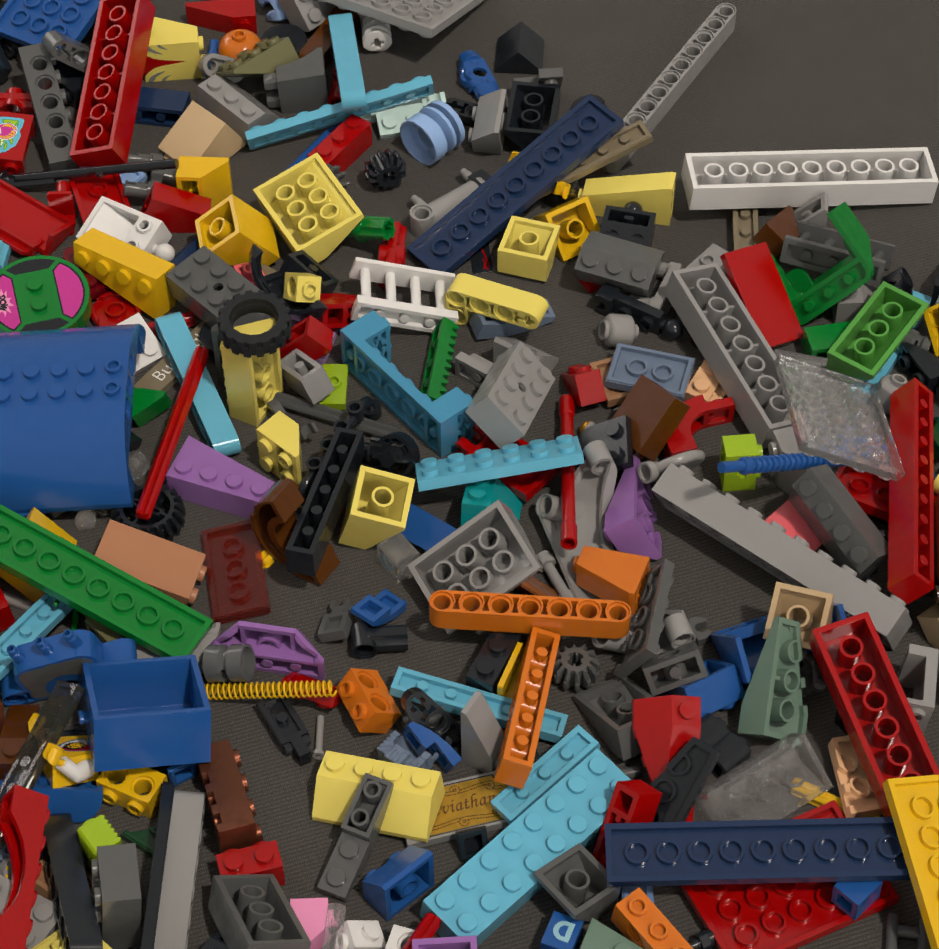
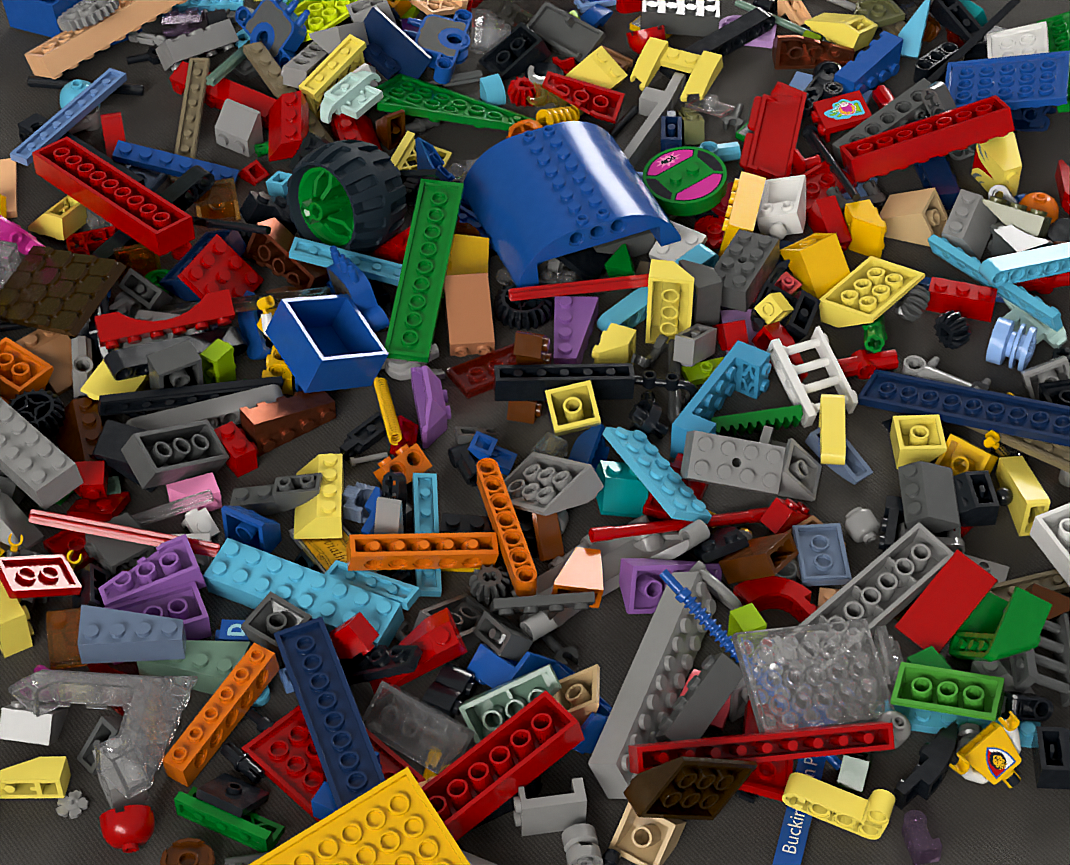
camera: 70 degrees right, 5 degrees down
(229, 663) = (399, 380): dark grey wheel -> none
(254, 303) = (676, 251): black tyre -> none

